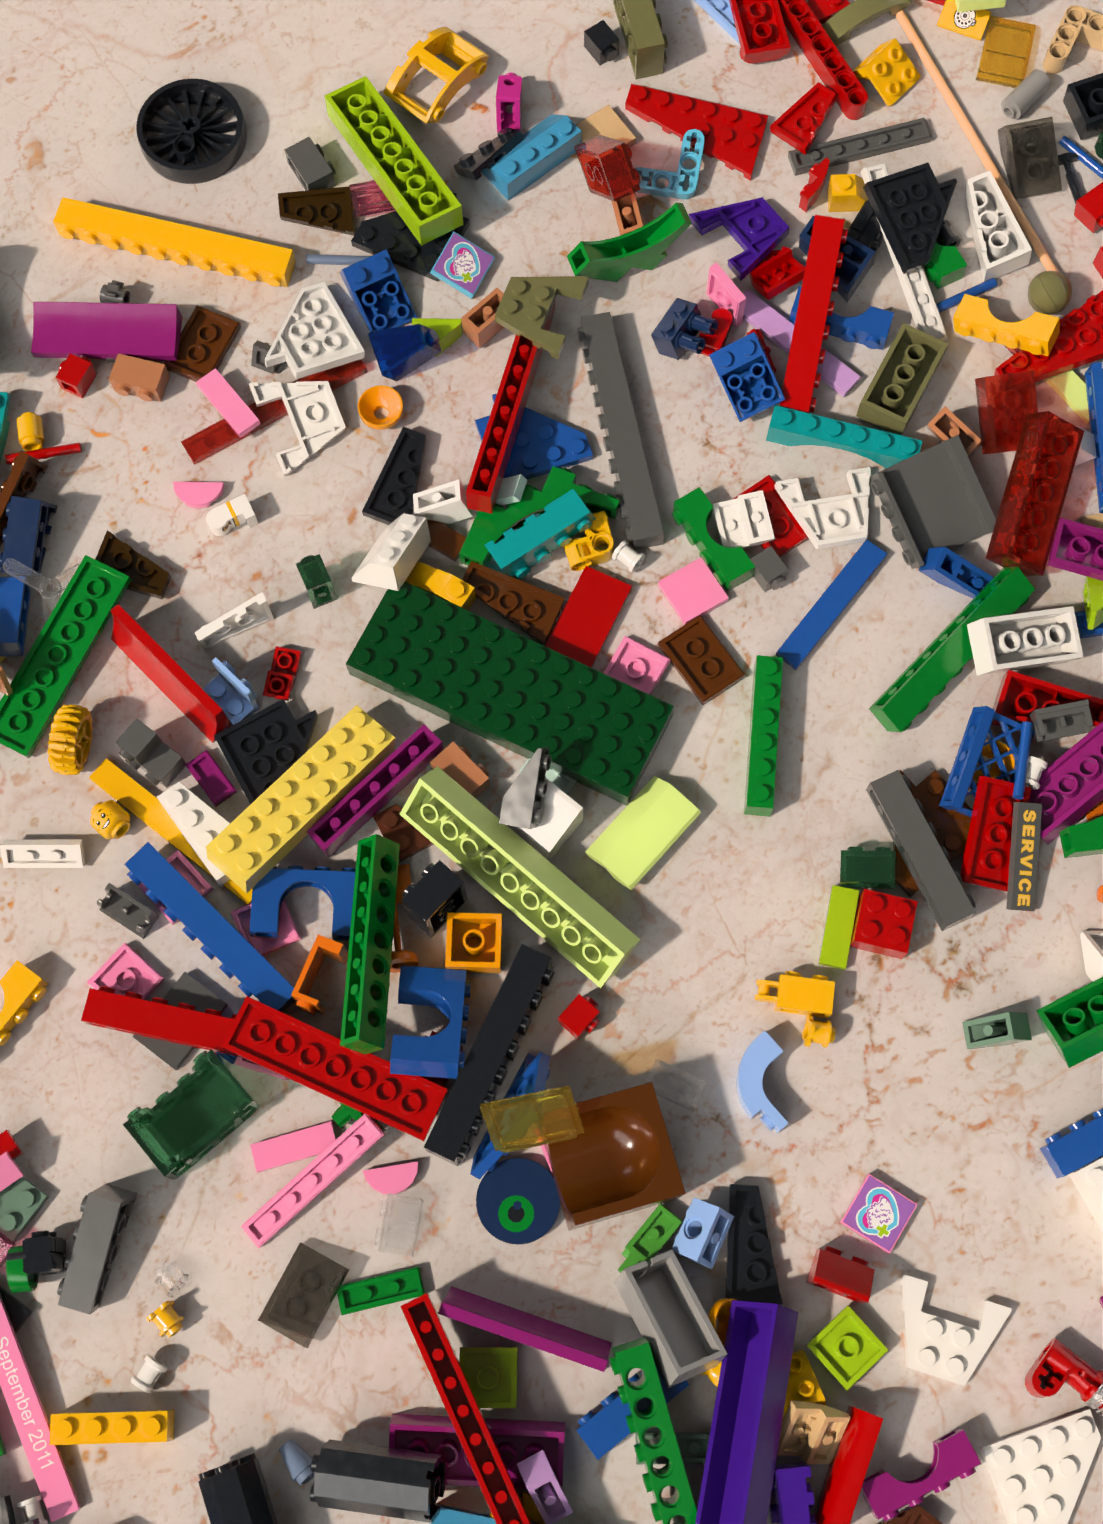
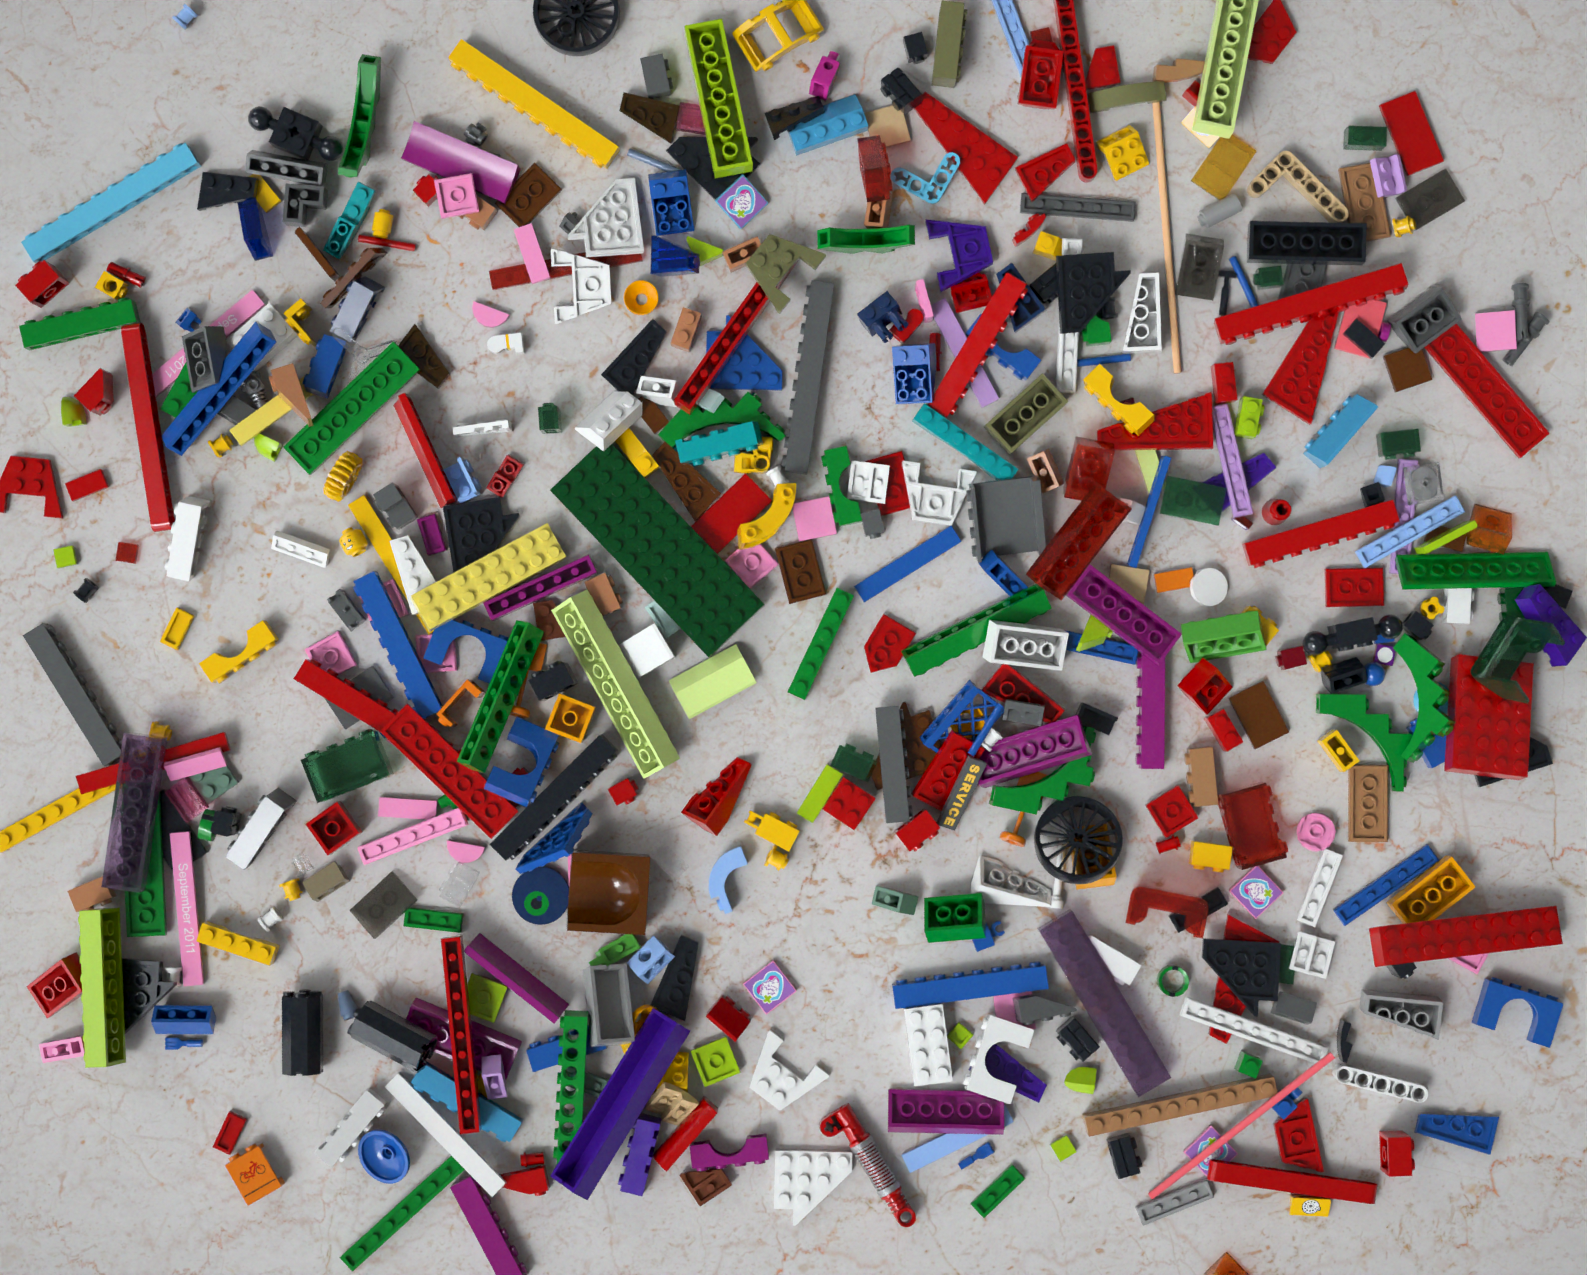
camera: 15 degrees right, 15 degrees up
(112, 364) = (456, 196): none -> bright pink tile
(199, 1208) = (334, 828): none -> red brick
(212, 1291) = (325, 881): none -> dark tan hinge
(449, 425) = (686, 329): none -> nougat brick
(524, 797) = (634, 638): slope -> none
(532, 1119) = (563, 856): clear yellow piece -> none
(604, 88) = (901, 91): none -> black brick
(638, 609) = (768, 525): none -> yellow window
(708, 989) = (715, 804): none -> red wedge
(846, 708) = (886, 643): none -> red tile
(987, 927) = (917, 830): none -> red brick
(1049, 292) = (1162, 384): olive piece -> none

